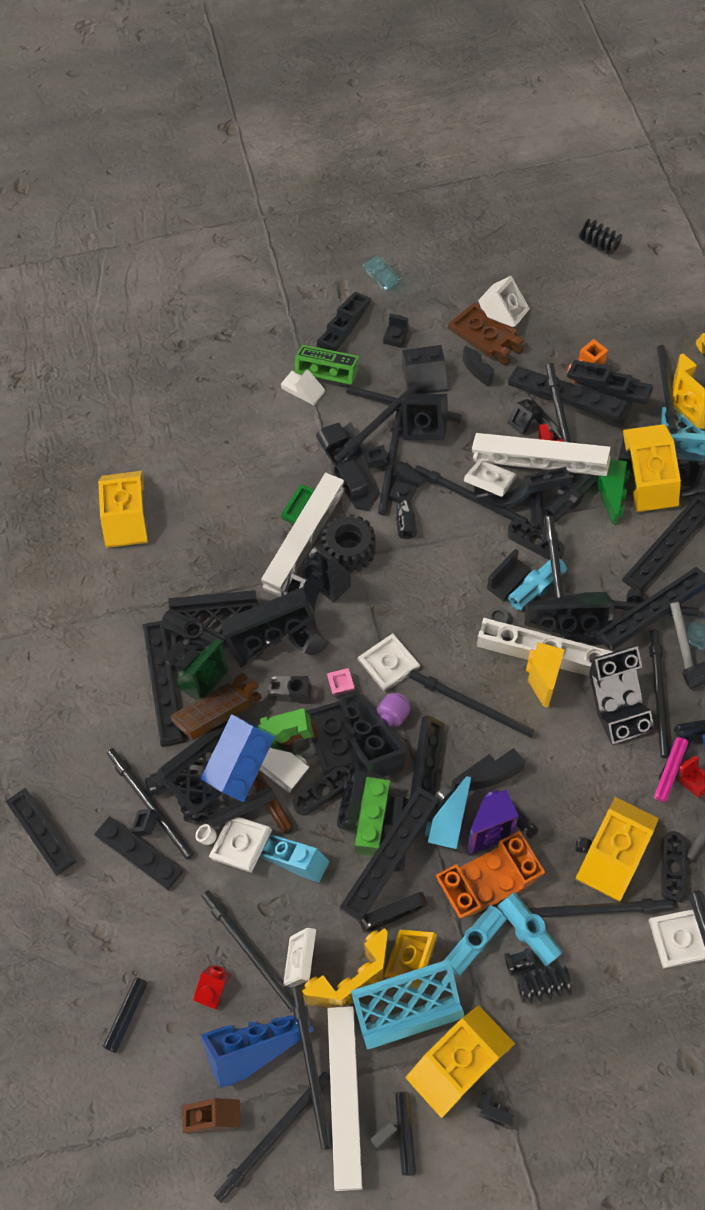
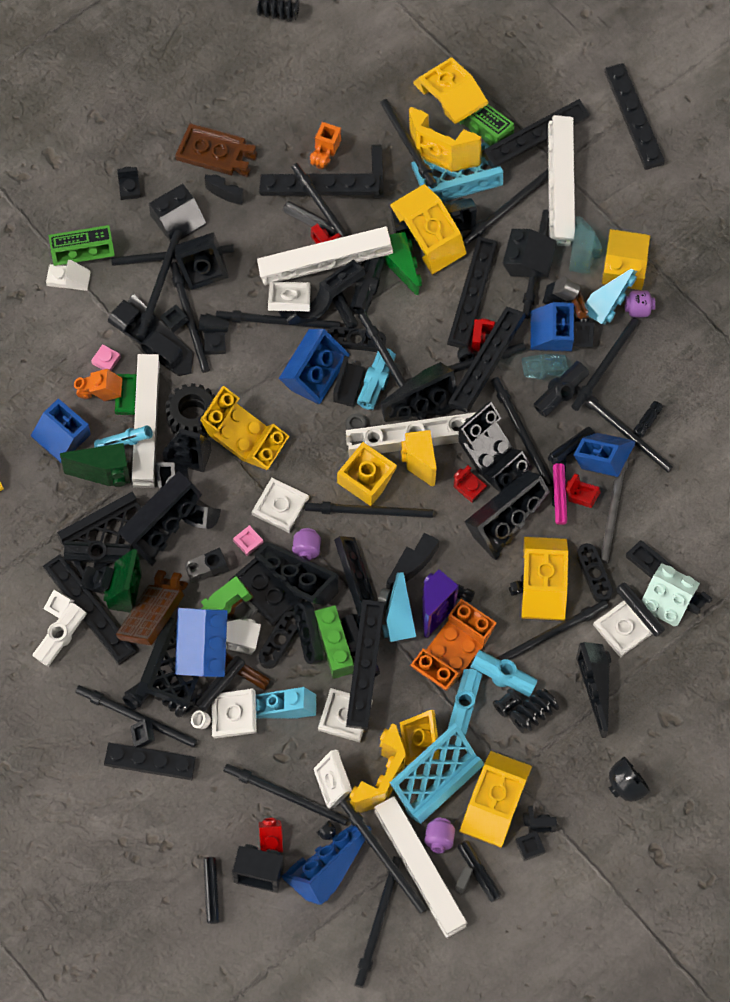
camera: 30 degrees left, 5 degrees up
(41, 832) = (56, 781): black plate -> none
(110, 699) = (68, 623): none -> white piece
(136, 665) = (57, 603): none -> white plate
(177, 1016) = (258, 868): none -> black piece
(211, 1115) = (322, 930): reddish brown slope -> none
(222, 511) = (60, 430): none -> blue slope
(239, 553) = (98, 464): none -> dark green slope
(269, 1009) = (327, 831): none -> black hinge
(280, 486) = (101, 383): none -> orange brick
(287, 540) = (141, 434): none -> medium azure pin
(298, 467) = (105, 358): none -> bright pink plate
(335, 892) = (335, 716): none -> white tile
(344, 322) = (73, 193): black slope -> none
(381, 272) = (83, 126): clear light blue slope -> none
(381, 1072) = (439, 835): none -> medium lavender head
(384, 577) = (241, 431): none -> yellow slope
(393, 912) = (388, 710): black beam -> none
(406, 520) = (231, 368): black hinge -> none
(472, 1132) = (530, 846): none -> black plate
(483, 547) = (314, 365): none -> blue slope
(483, 667) = (366, 474): none -> yellow slope
(504, 302) = (219, 114): white slope -> none
(523, 415) = (290, 222): black bracket -> none
(582, 720) = (468, 484): none -> red bracket
(608, 382) = (355, 160): black slope -> none
(608, 764) = (506, 512): none -> black wedge
(611, 1113) = (627, 782): none -> black cylinder
(628, 973) = (594, 668): none -> black wedge
(660, 578) = (481, 328): none -> red bracket
(681, 633) = (520, 373): light grey bar -> none

